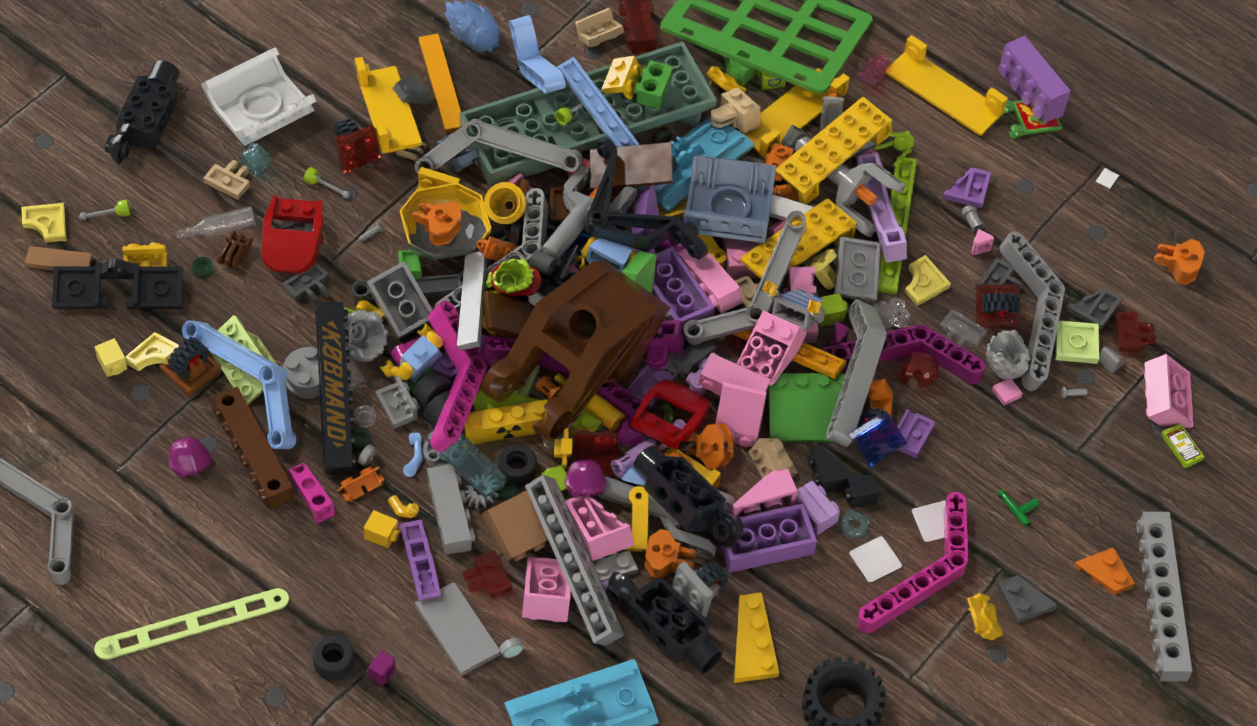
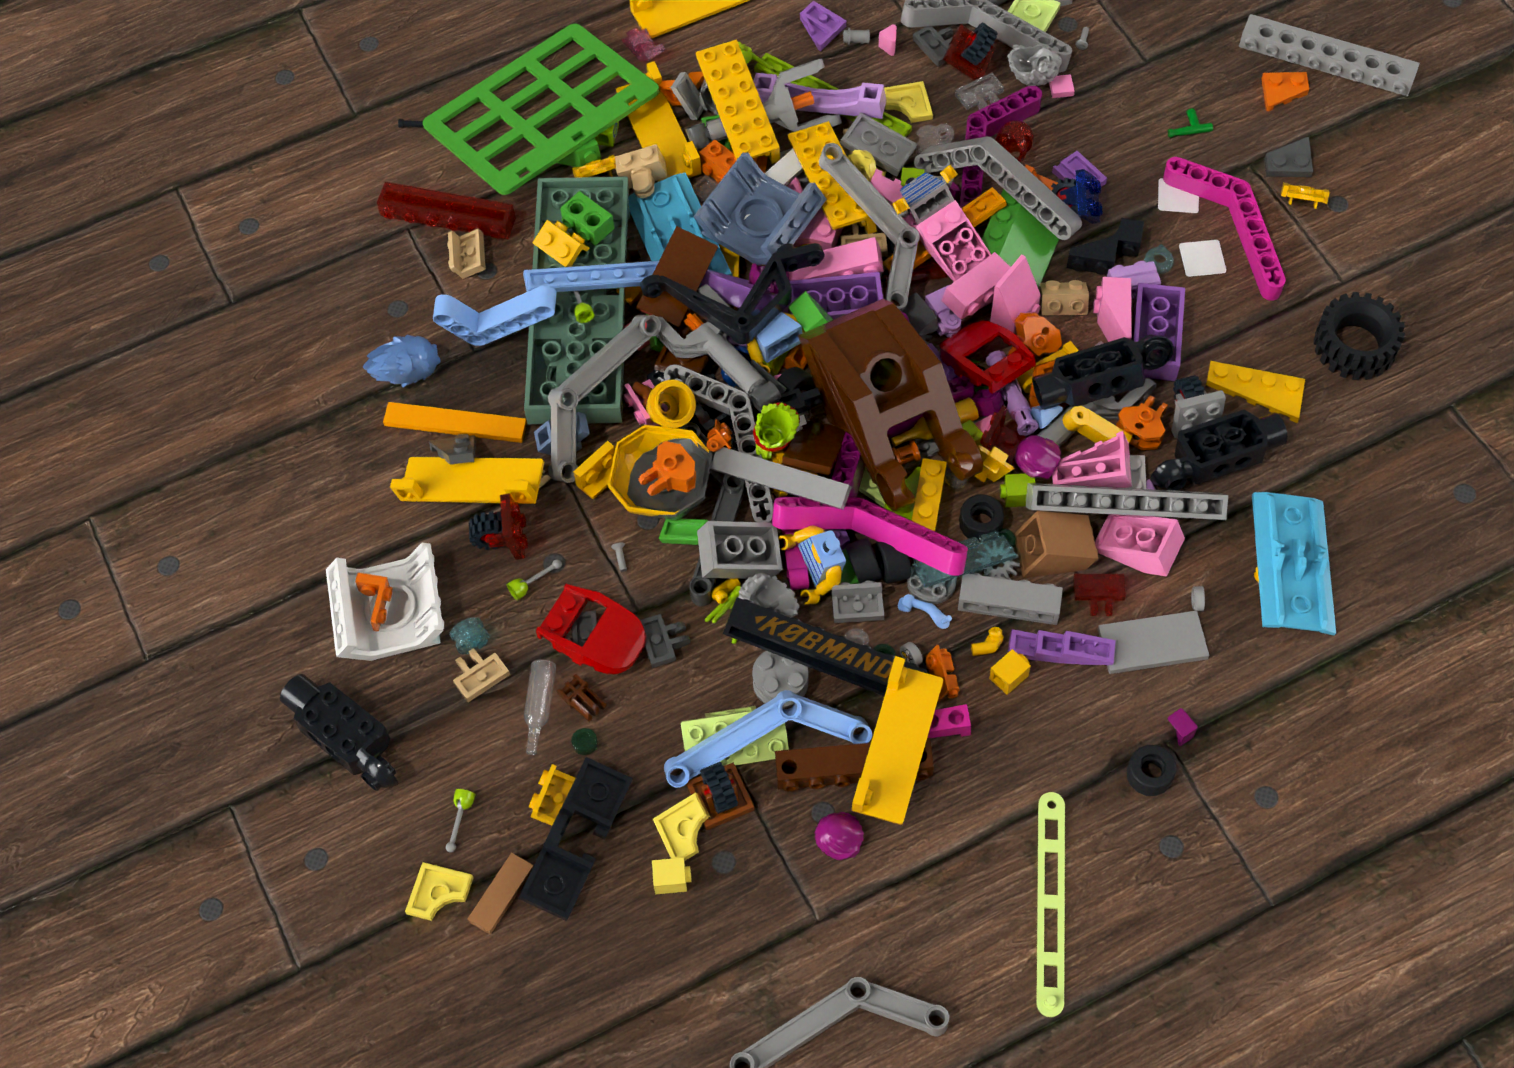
camera: 60 degrees left, 5 degrees up
(260, 91) = (372, 585): none -> orange bracket
(273, 461) = (897, 744): none -> yellow bracket

